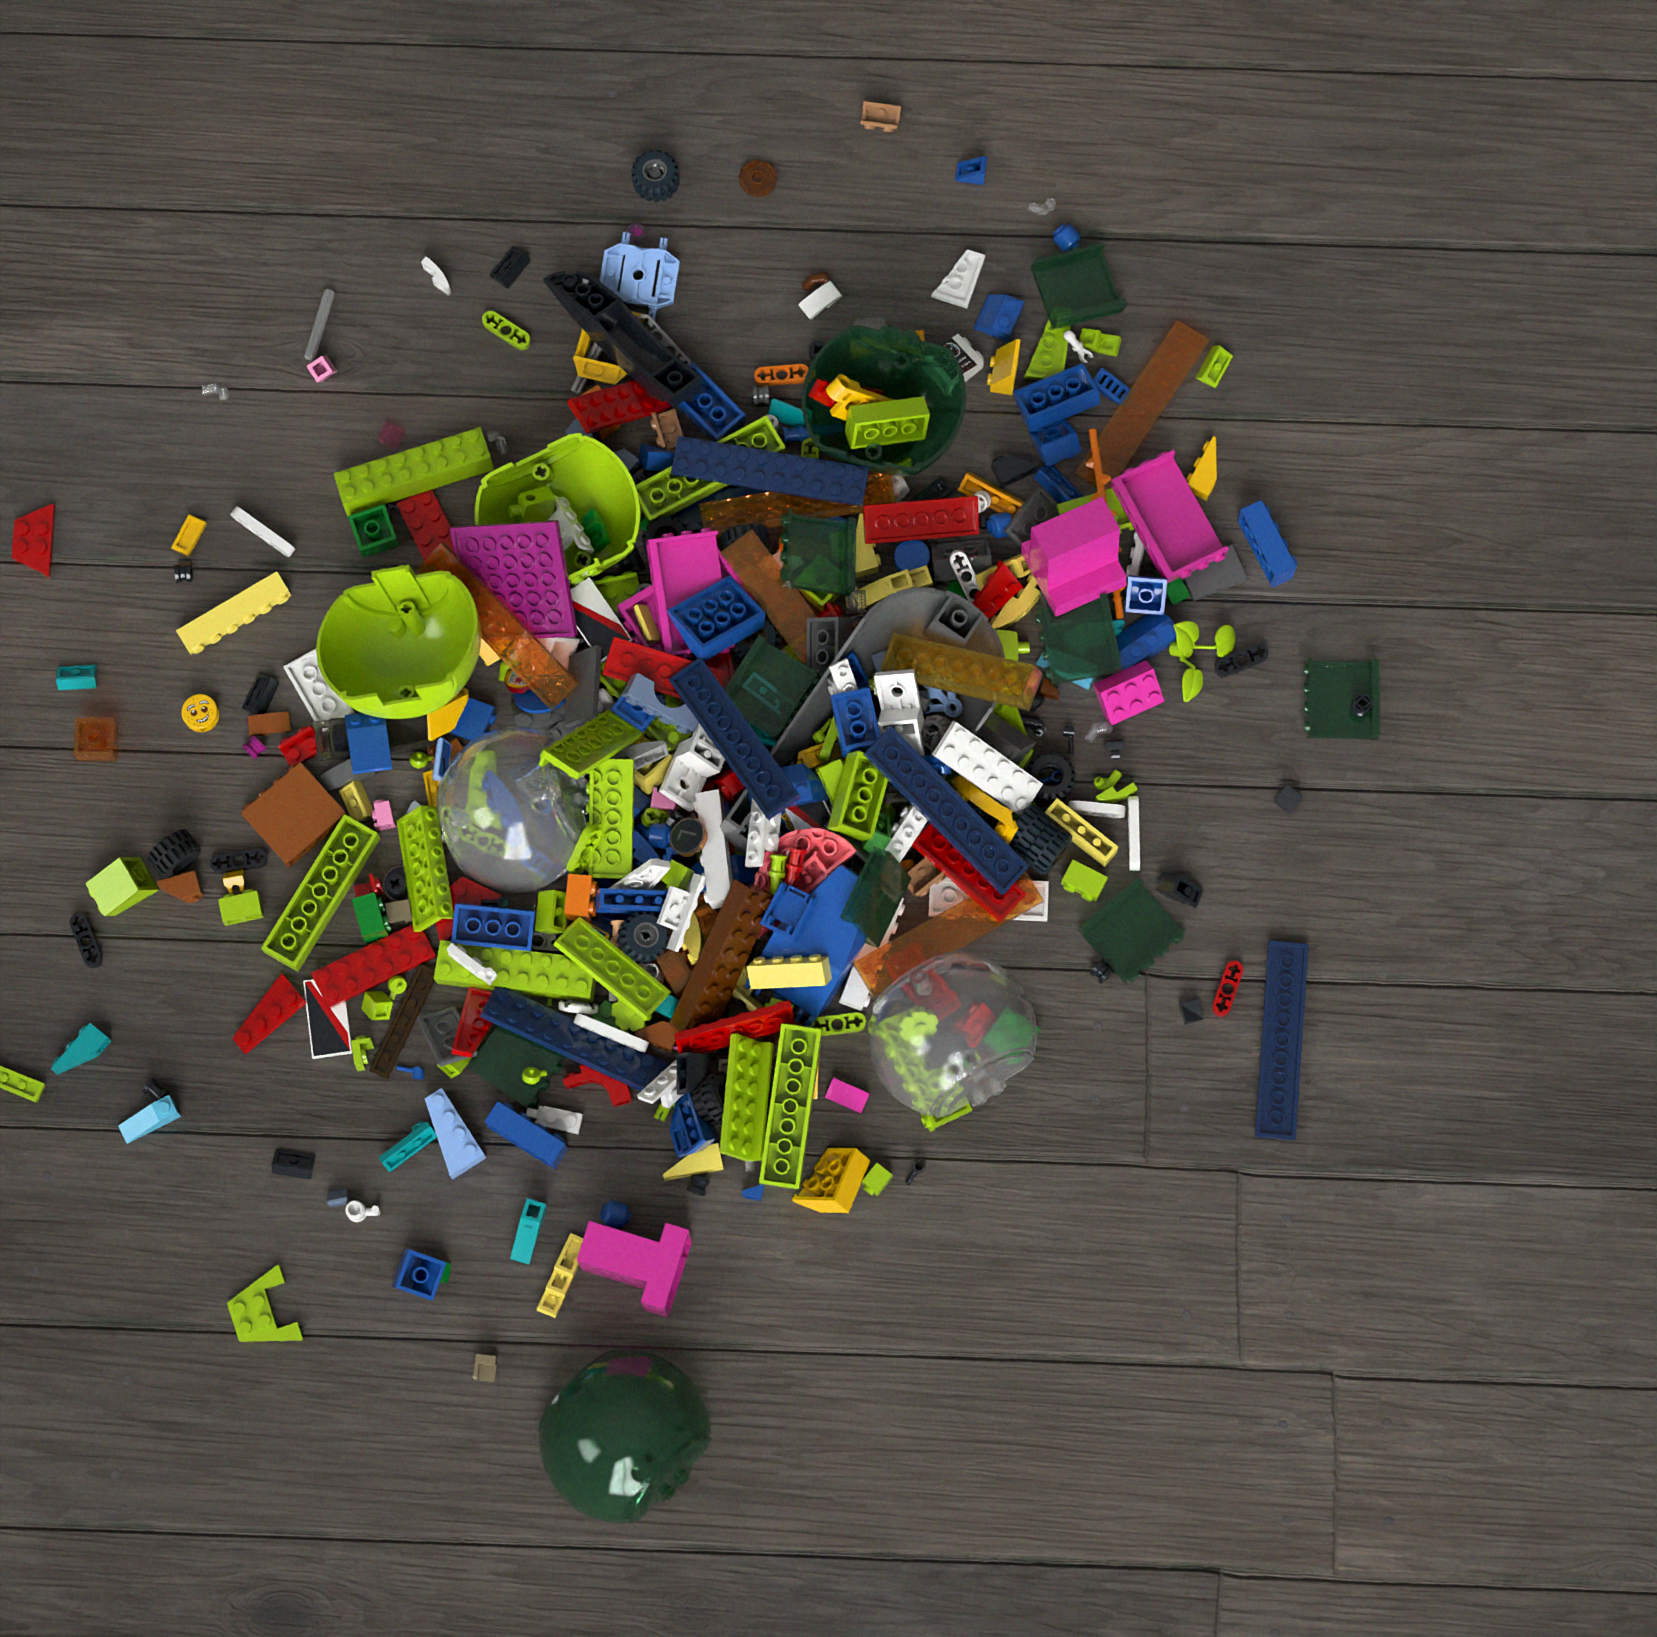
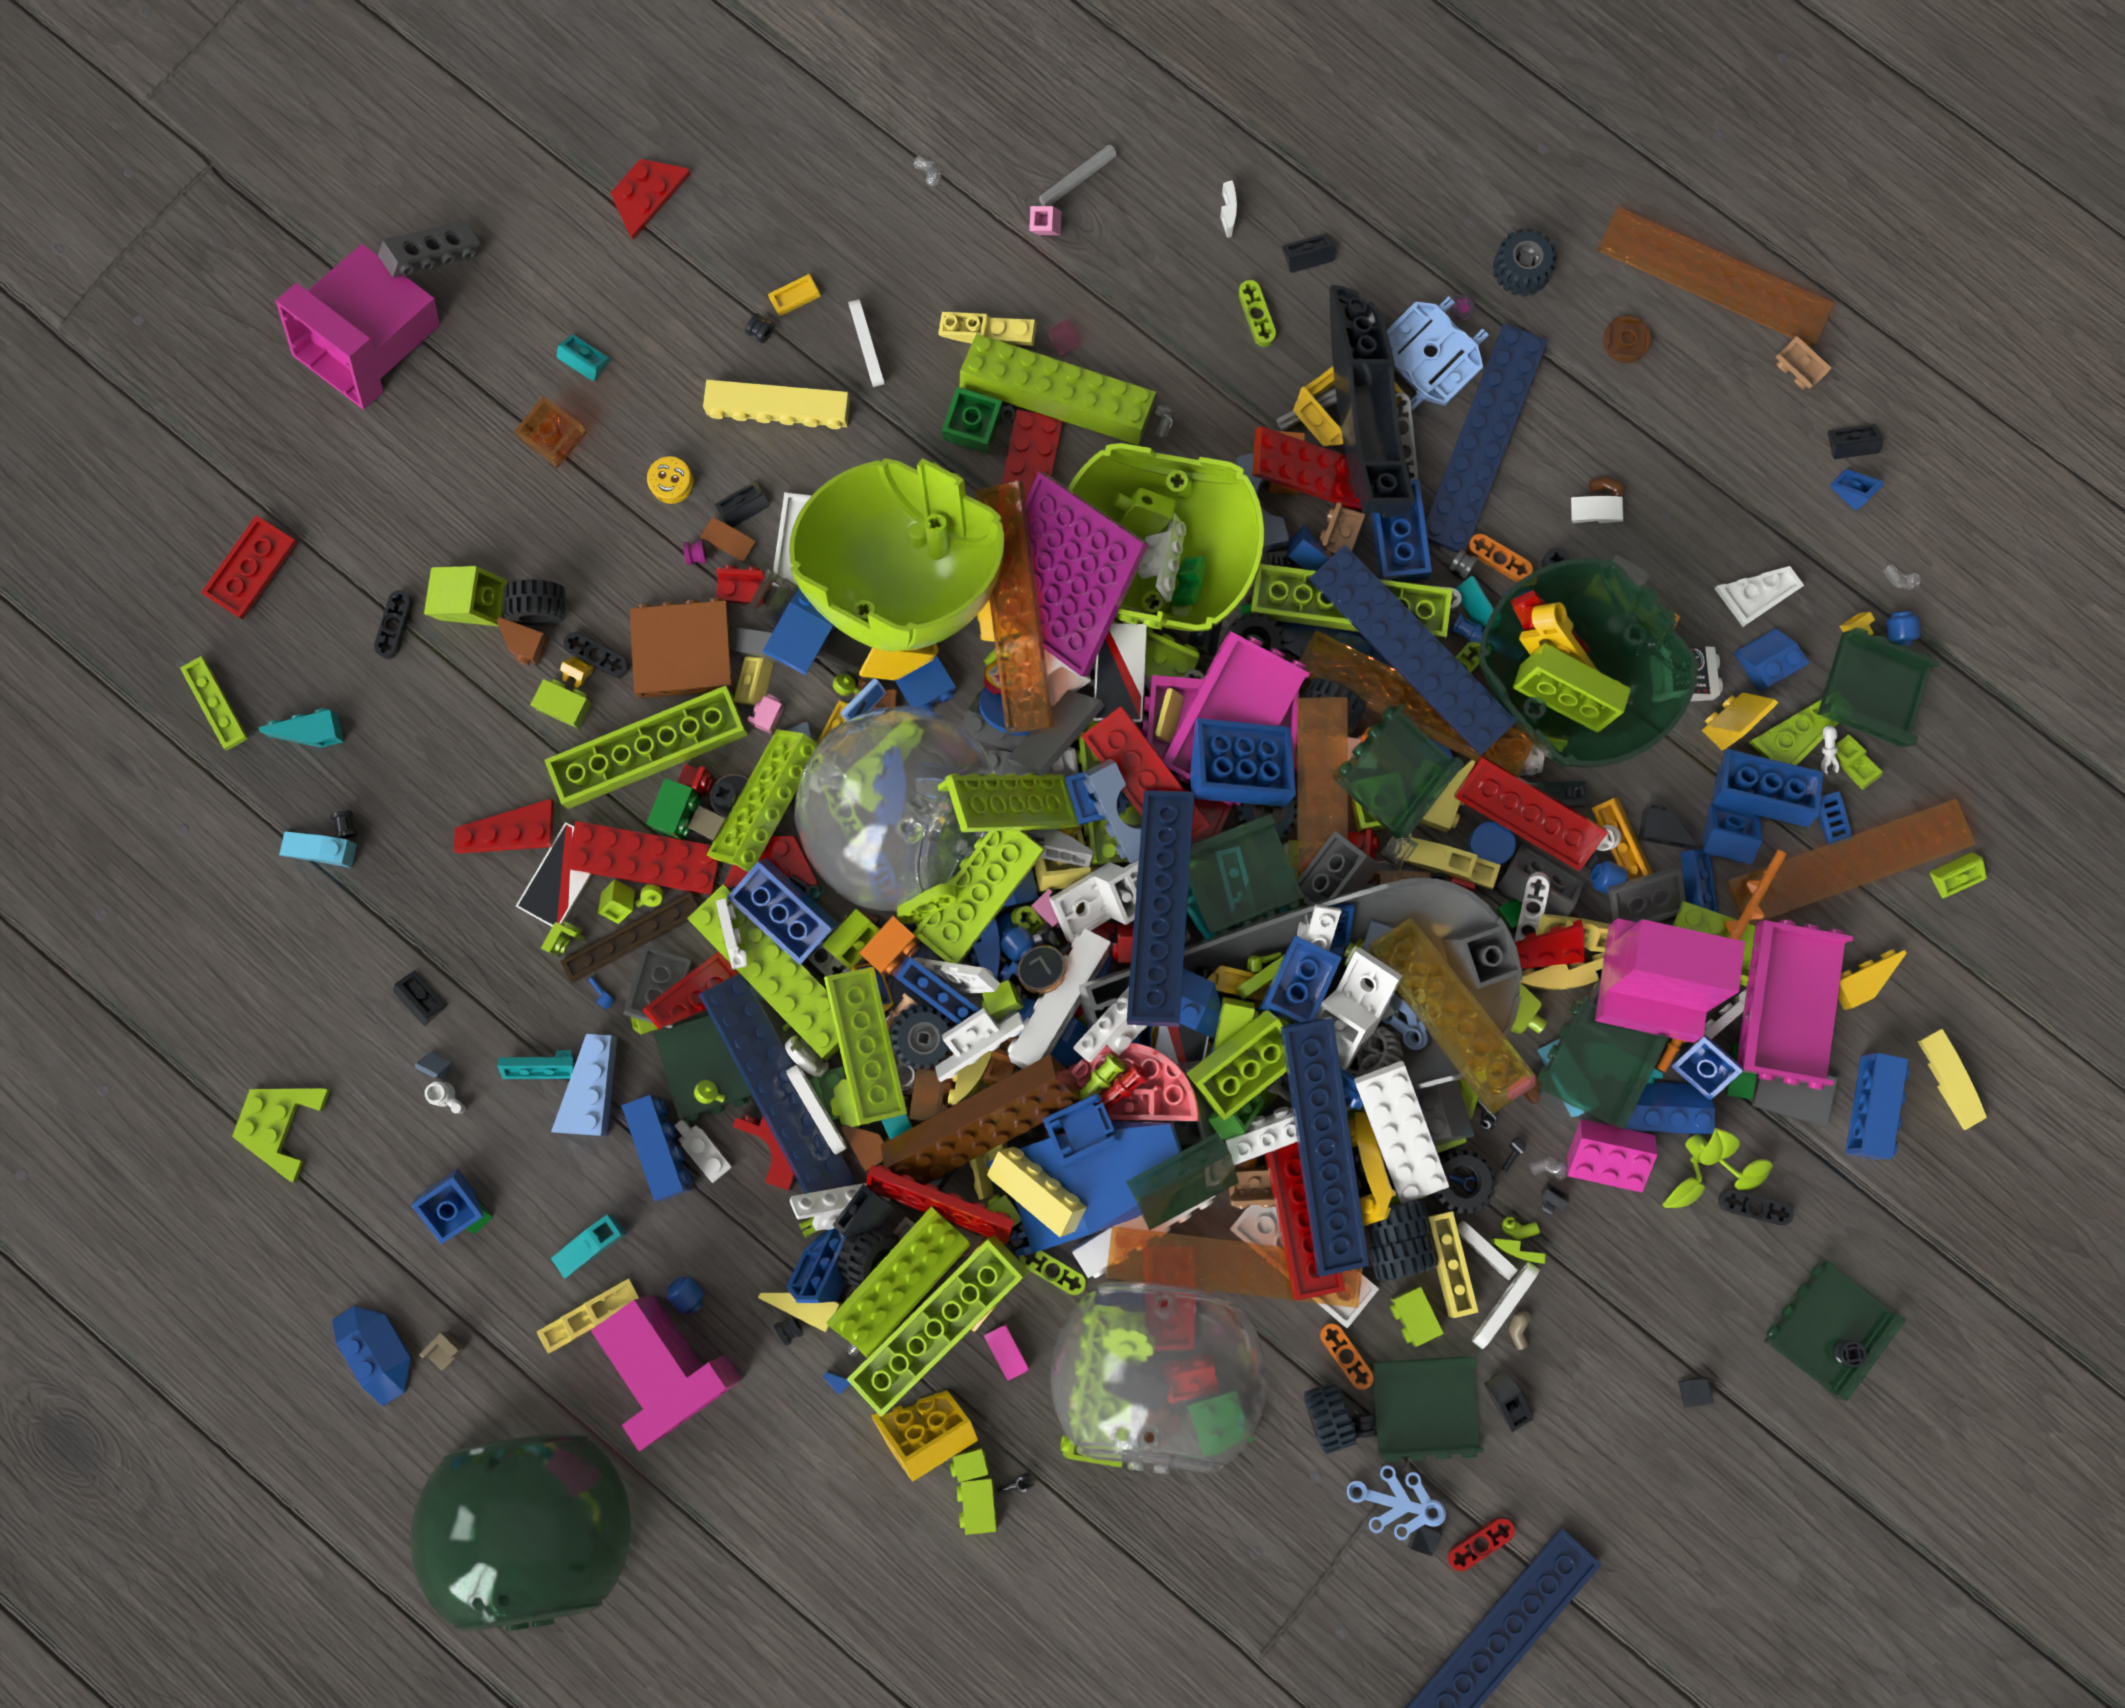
camera: 40 degrees right, 5 degrees up
(322, 473) = (966, 325): none -> light yellow slope
(441, 1401) = (373, 1352): none -> blue wedge
(714, 306) = (1483, 438): none -> dark blue plate
(783, 98) = (1715, 276): none -> clear orange plate
(900, 1200) = (978, 1505): none -> lime brick
(950, 141) = (1855, 441): none -> black slope
(1036, 252) = (1860, 620): none -> yellow tile
(1044, 939) = (1352, 1375): none -> orange beam
(1076, 979) = (1330, 1418): none -> black wheel
(1151, 841) = (1517, 1327): none -> dark tan arm
(1159, 1000) = (1401, 1504): none -> light blue plant
(1301, 493) = (1953, 1079): none -> light yellow slope

